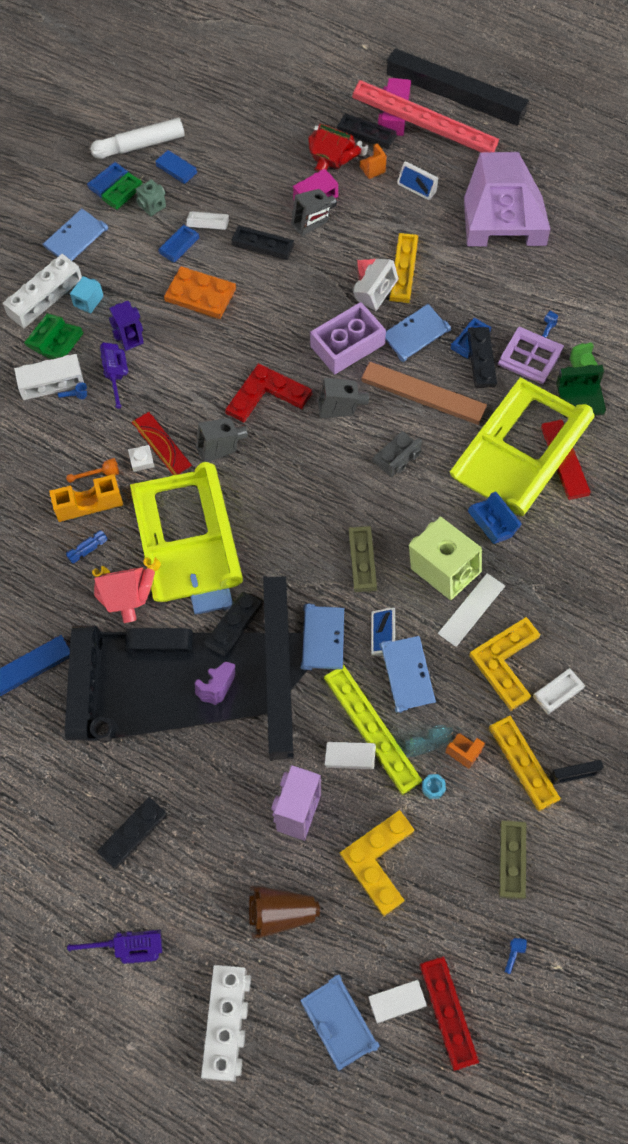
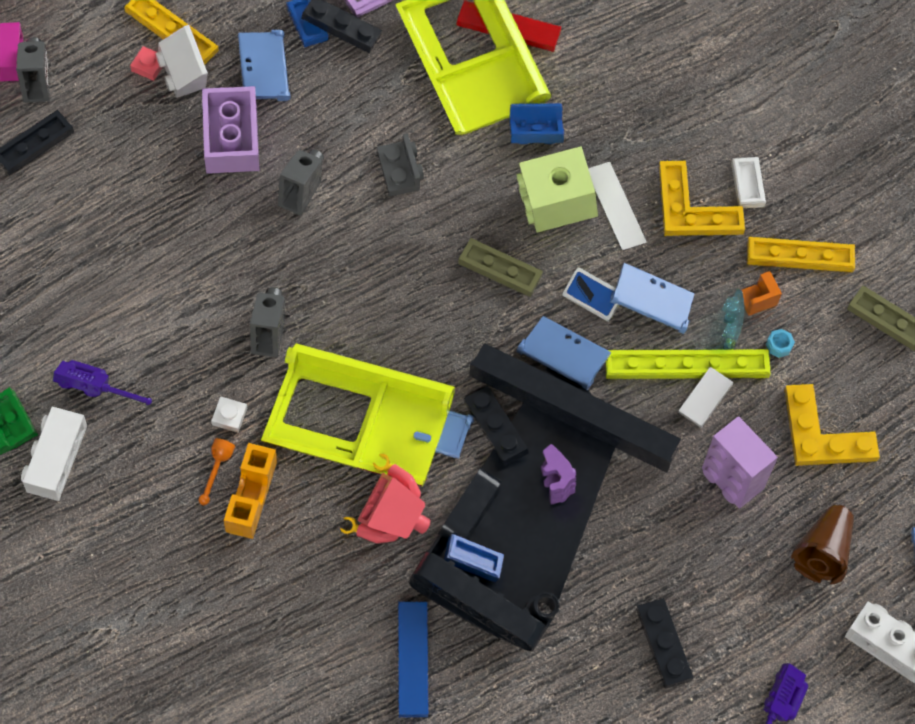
camera: 65 degrees left, 0 degrees up
(79, 392) = (93, 436): blue hand -> none
(86, 546) = (305, 525): blue axle -> none
(117, 663) = (474, 558): none -> tile
(126, 325) = (51, 334): dark purple brick -> none
(161, 444) = (222, 385): red sticker -> none
(200, 292) = (50, 241): orange plate -> none
(266, 380) = (219, 239): red plate -> none
(424, 393) = (342, 102): nougat tile -> none
(576, 772) = (839, 215): black tile -> none

